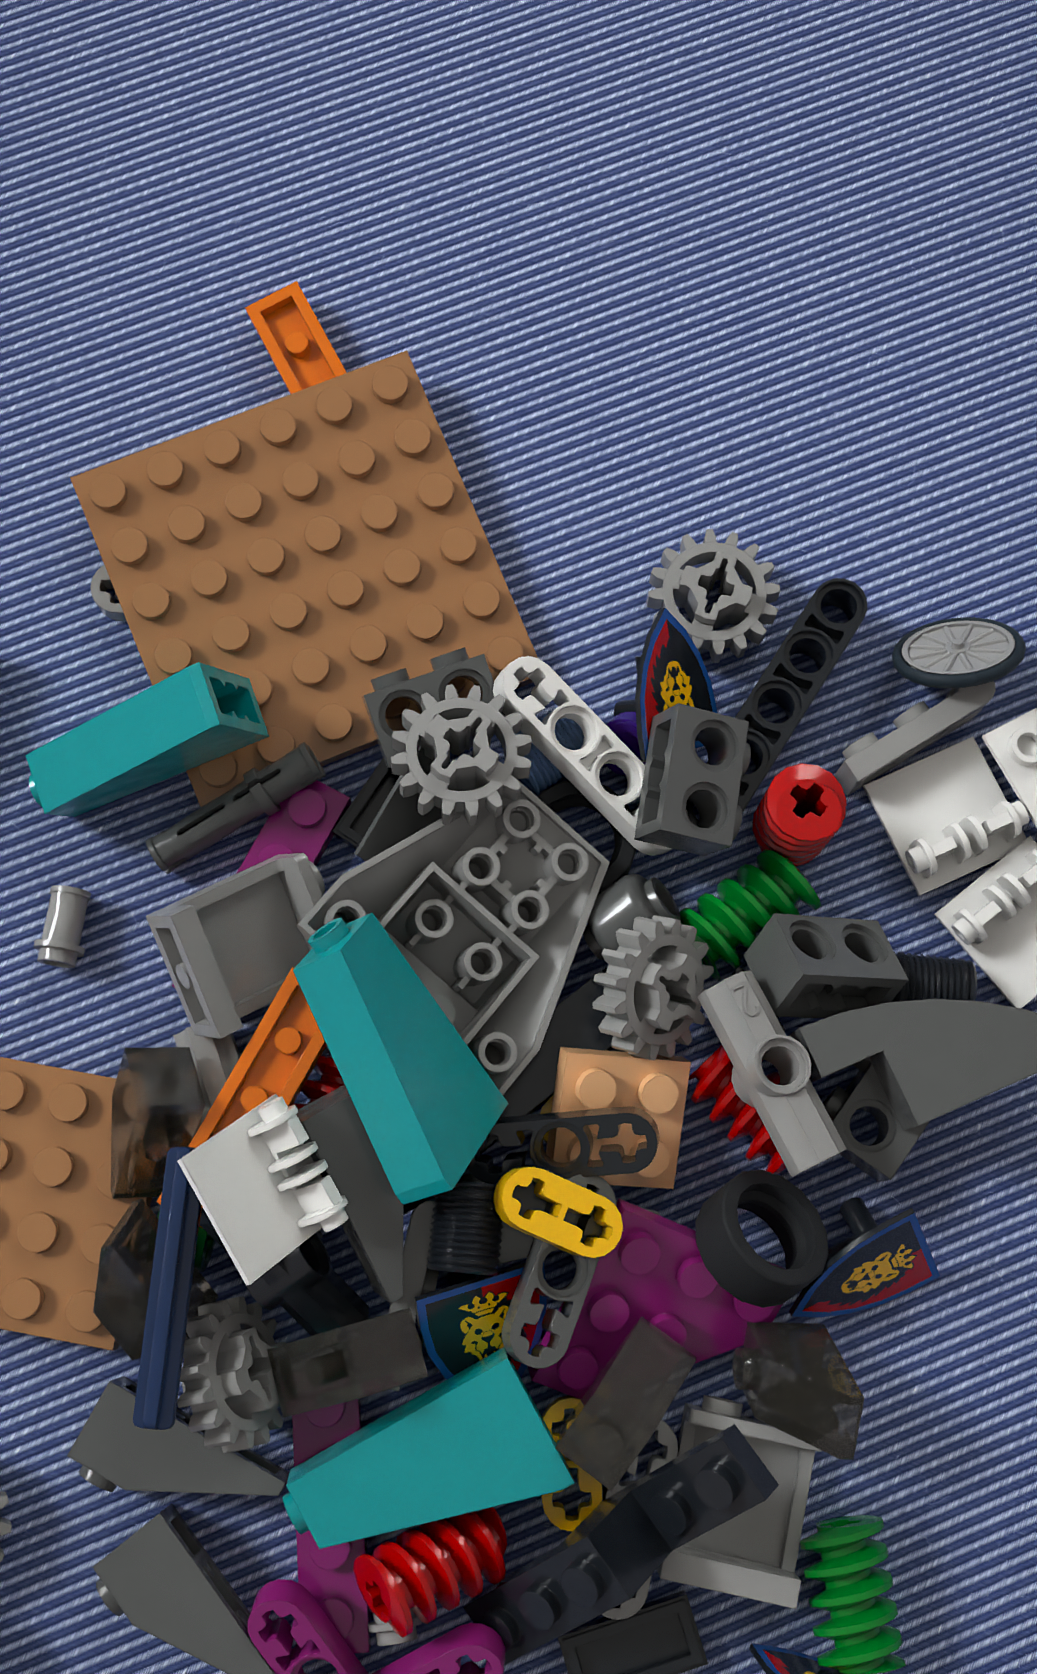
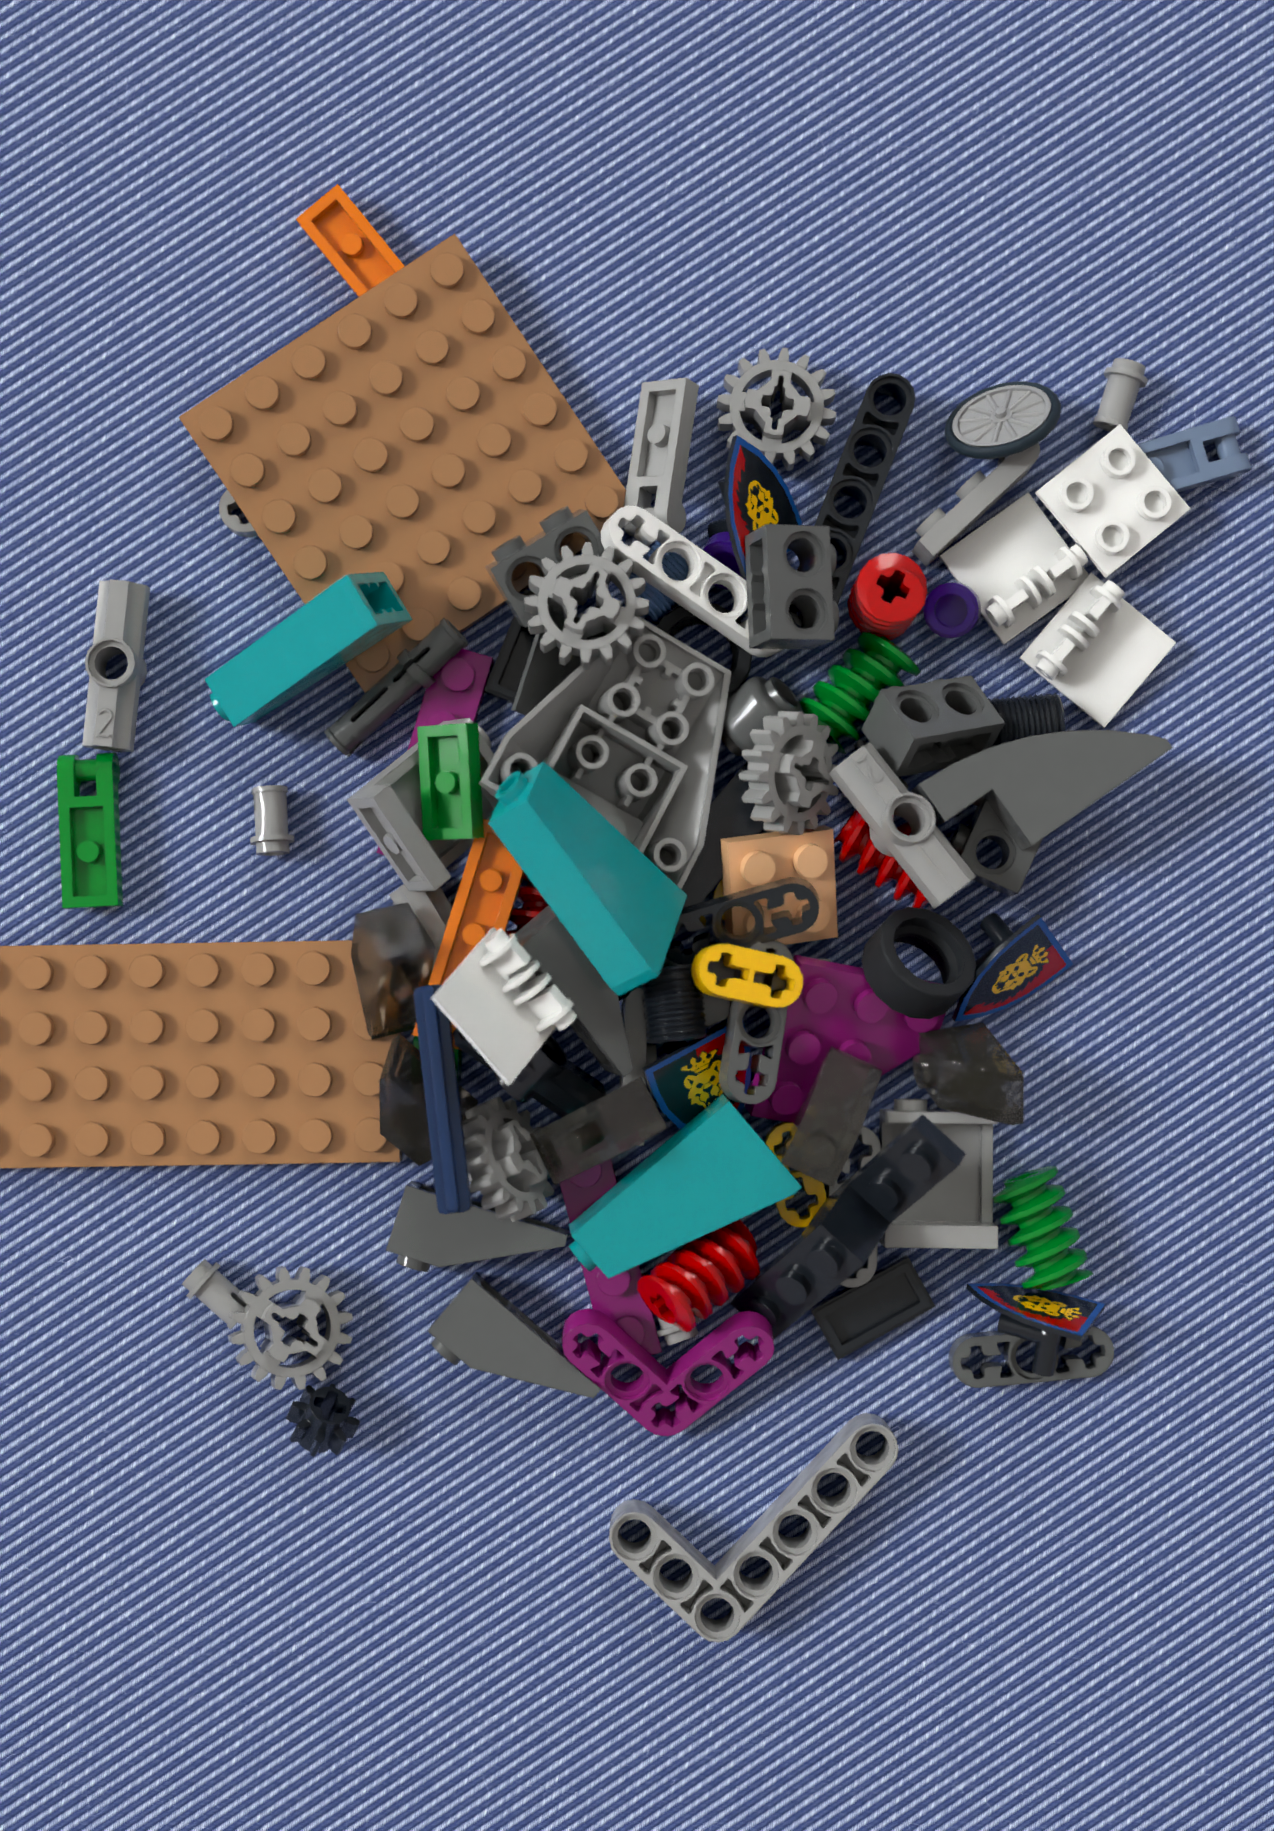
camera: 10 degrees left, 10 degrees up
(265, 919) = (450, 781): none -> green plate
(582, 612) = (662, 450): none -> light grey plate
(868, 846) = (952, 610): none -> dark purple tile

